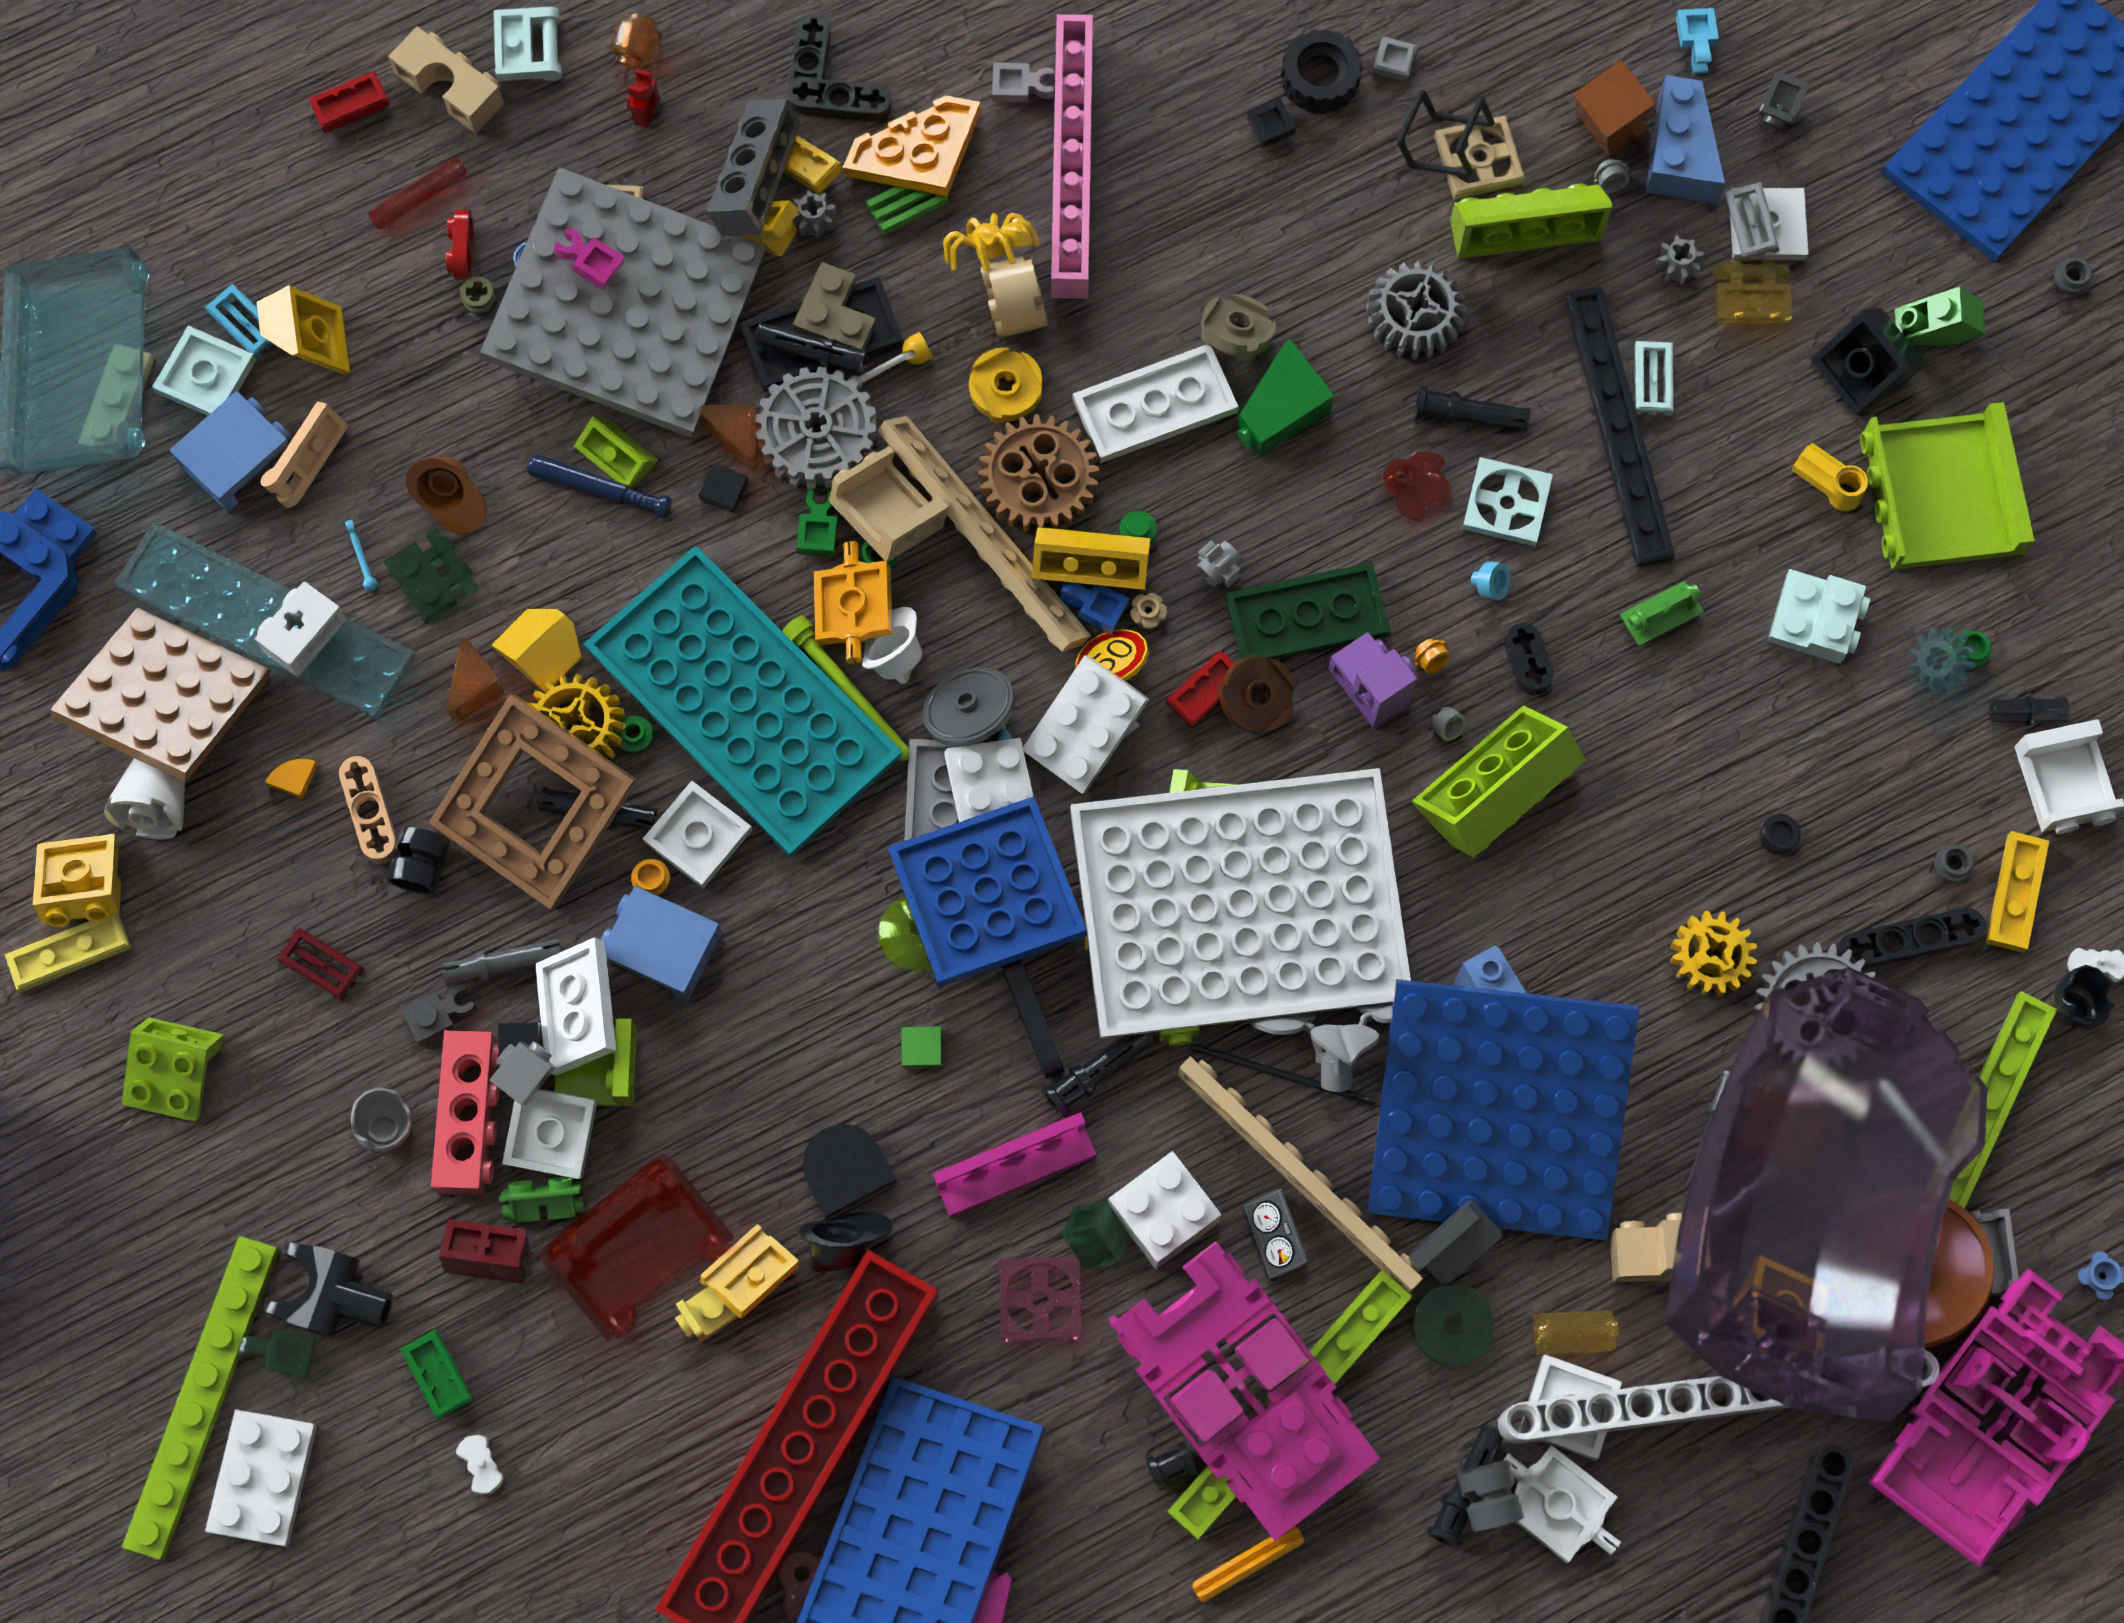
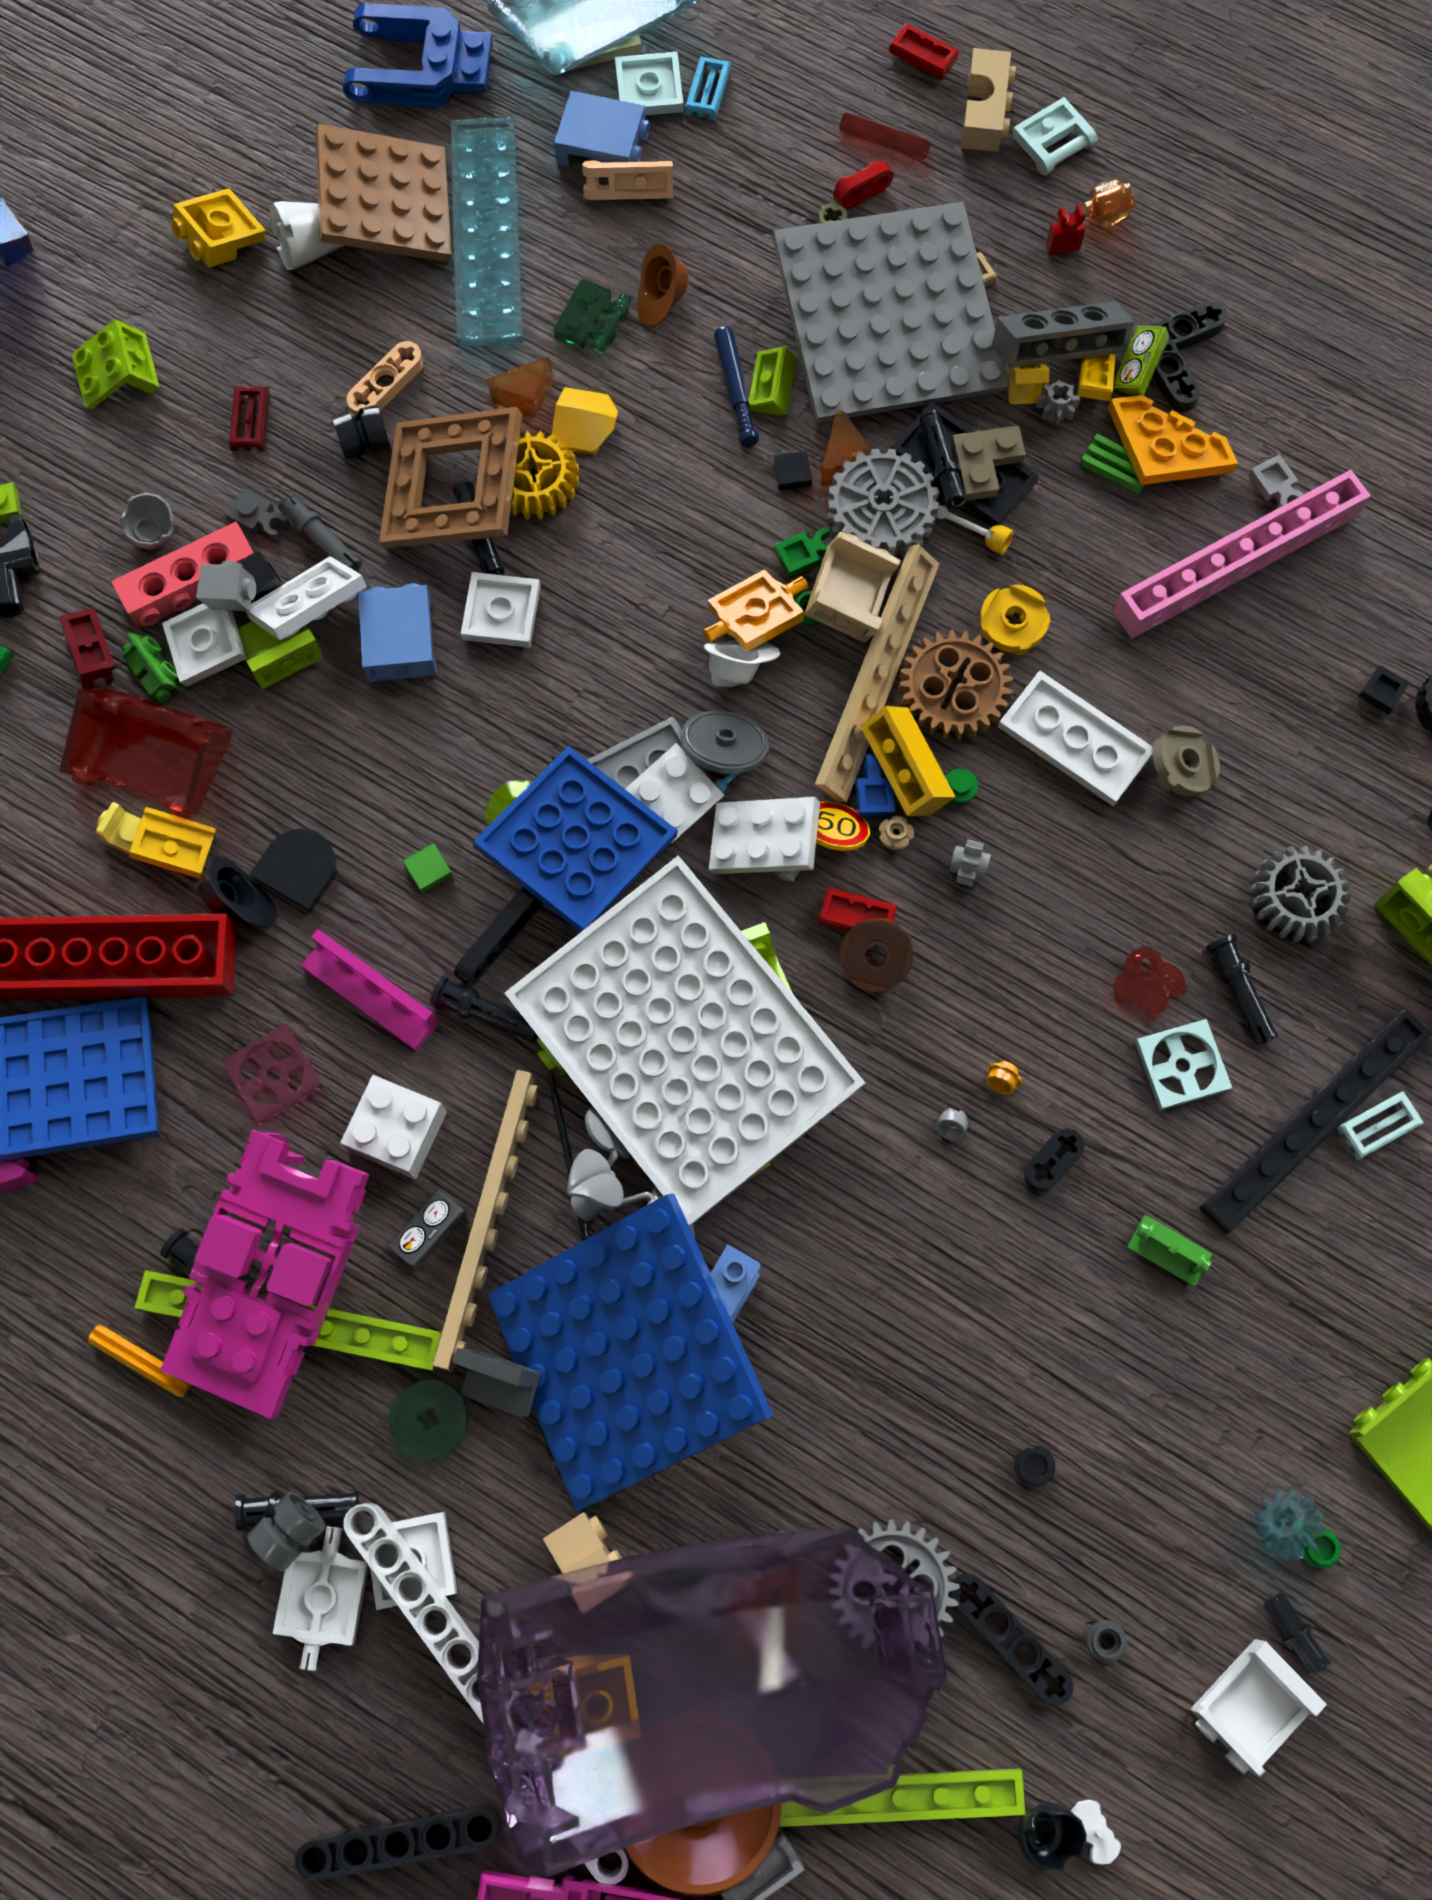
camera: 60 degrees right, 0 degrees up
(67, 952) = (164, 255): light yellow tile -> none
(293, 777) = (380, 318): light orange tile -> none
(294, 646) = (486, 249): white brick -> none
(305, 327) = (724, 123): yellow slope -> none
(369, 582) = (594, 246): medium azure hinge -> none
(592, 261) = (899, 261): dark pink plate -> none
(640, 743) = (557, 529): green plate -> none
(651, 876) = (447, 598): light orange plate -> none
(743, 701) = (627, 582): teal plate -> none
(802, 635) = (707, 588): lime piece -> none
(819, 117) = (1141, 360): none -> slope
(990, 240) = (1124, 533): yellow animal -> none
(1014, 296) = (1090, 578): tan brick -> none
(1095, 1235) = (344, 1084): clear green panel -> none
(1283, 402) = (1144, 833): green slope -> none
(1308, 613) = (974, 958): dark green plate -> none
(1374, 677) = (949, 1039): medium lavender brick -> none
(1492, 580) = (1102, 1090): medium azure tile -> none
(1500, 780) = (928, 1195): lime slope -> none
(1575, 1332) = (480, 1528): clear yellow hinge -> none
(1706, 940) = (902, 1473): yellow gear -> none
(1819, 615) = (1258, 1389): light aqua plate -> none
(1828, 474) = (1396, 1325): yellow piece -> none
(2017, 892) = (1115, 1716): yellow plate -> none

